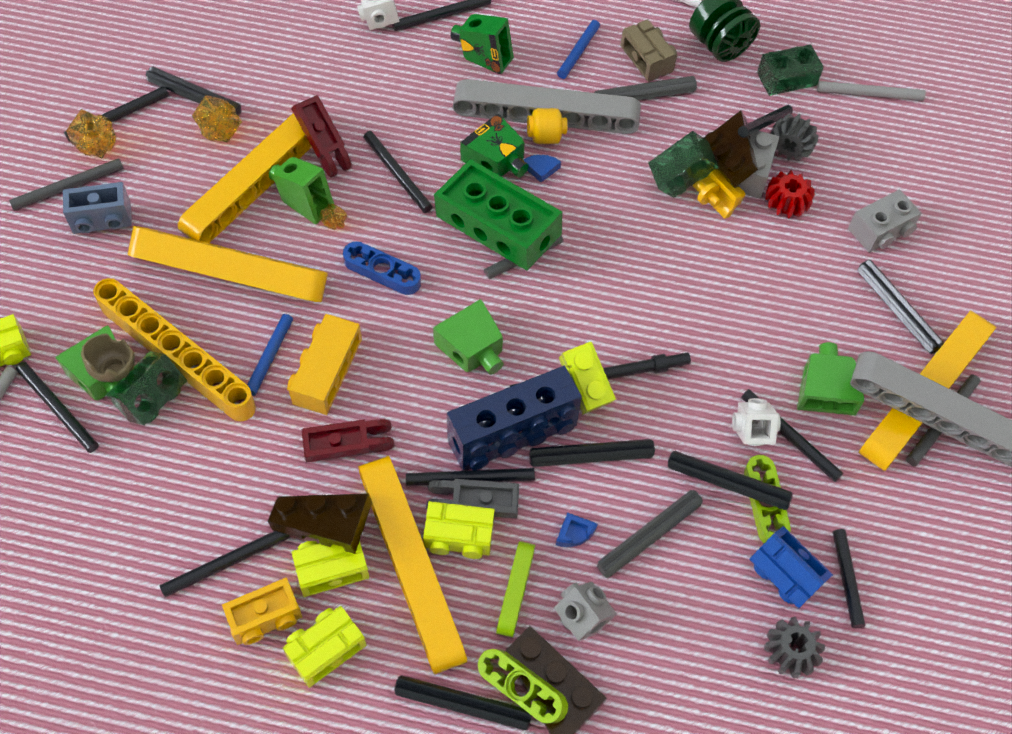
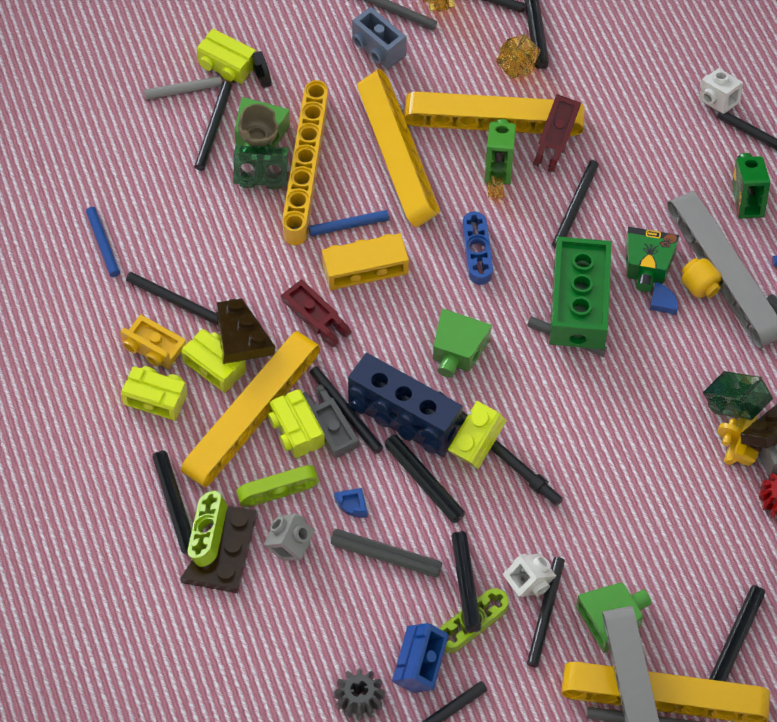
camera: 60 degrees right, 0 degrees up
(35, 325) = (261, 69): none -> black tile
(98, 593) = (102, 241): none -> blue bar

